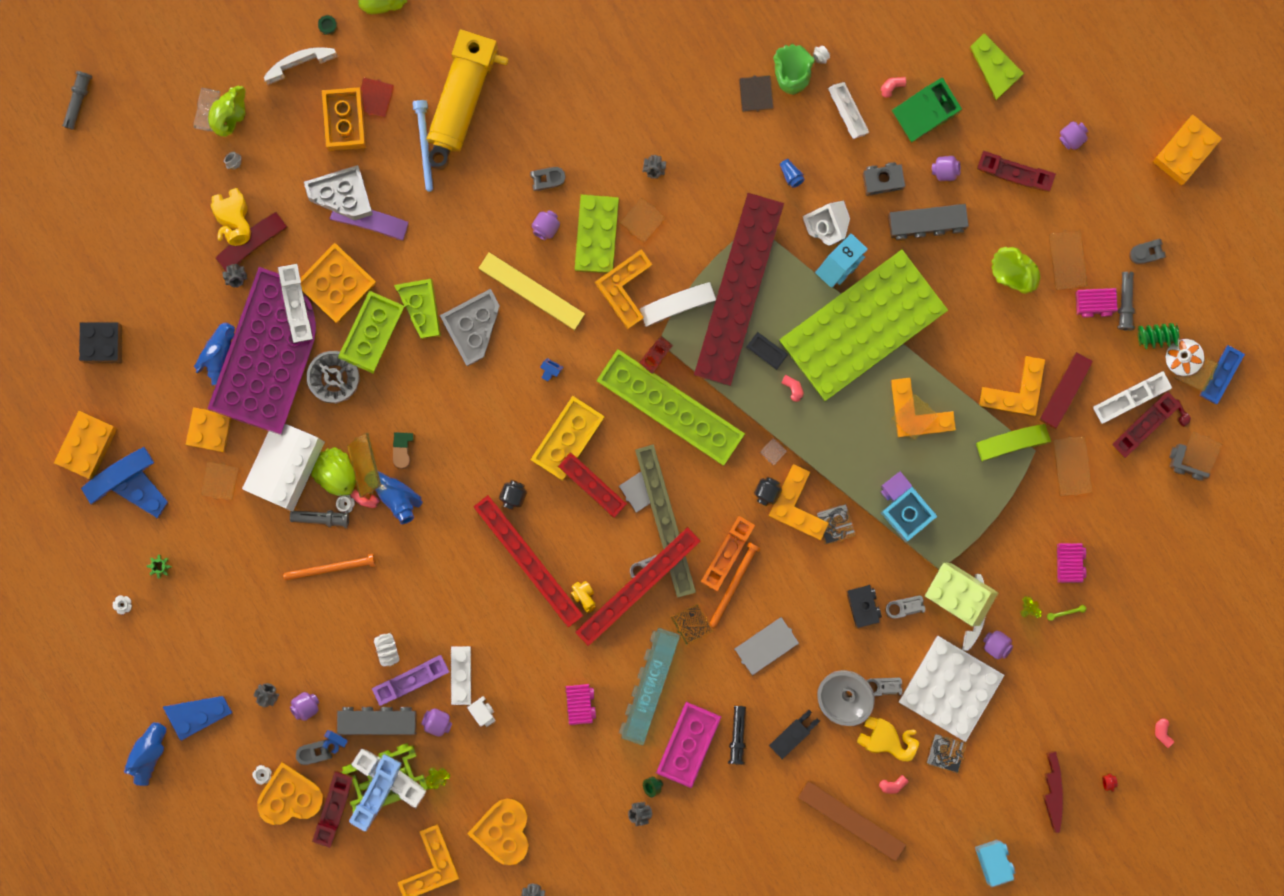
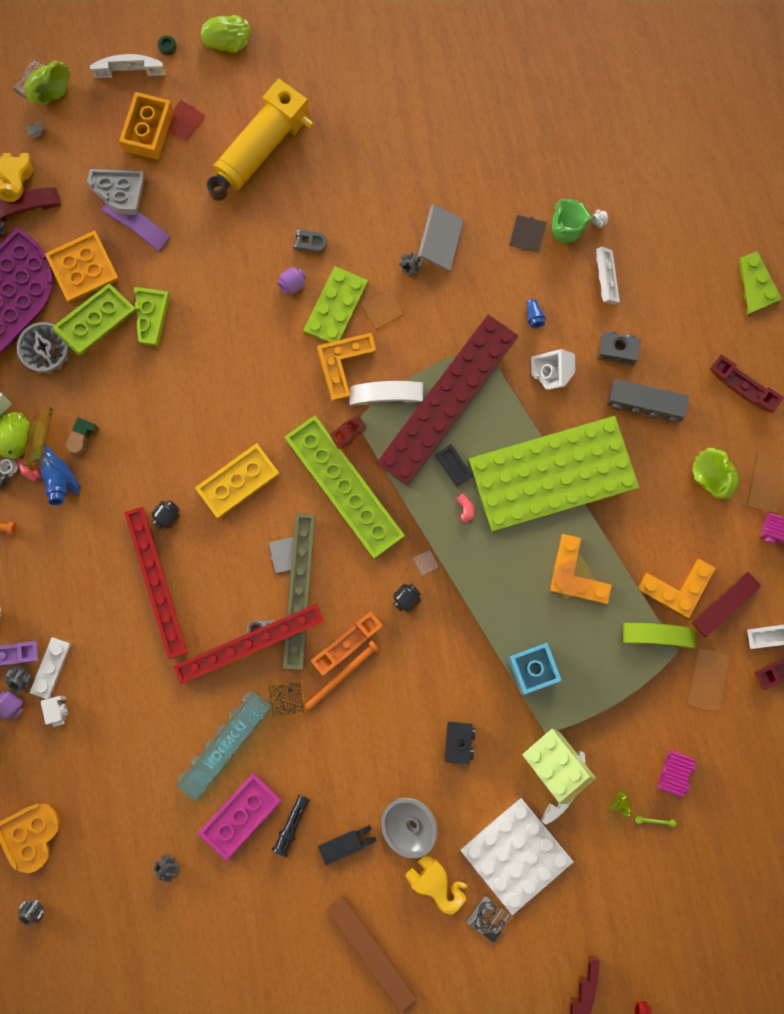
camera: 20 degrees right, 5 degrees down
(294, 303) = (35, 268): white slope -> none
(420, 109) = (220, 141): light blue piece -> none
(436, 695) = (18, 678): none -> dark grey gear
(472, 325) = (190, 347): light grey plate -> none
(531, 291) = (257, 336): light yellow tile -> none
(551, 368) = (245, 412): blue tile -> none
(579, 704) = (150, 738): dark pink brick -> none
(582, 593) = (195, 631): yellow plate -> none
(592, 485) = (243, 532): red tile -> none
(652, 786) = (189, 845): dark green tile -> none
(674, 130) = (440, 238): none -> light grey tile
(766, 646) = (351, 746): light grey piece -> none
(786, 512) = (417, 622): light orange plate -> none
(840, 524) = (460, 653): piece -> none
(842, 261) = (554, 406): medium azure brick -> none
(887, 686) = (454, 829): light grey piece -> none
(890, 84) = (654, 267): coral arm -> none
(893, 787) = (423, 934): coral arm -> none
(895, 487) = (530, 637): medium lavender brick -> none
(908, 606) = (503, 758): light grey piece -> none
(927, 110) = (682, 299): green slope -> none
(946, 168) = (681, 358): medium lavender head -> none
(998, 644) = (577, 829): medium lavender head -> none
(1161, 732) = (711, 978): coral arm -> none

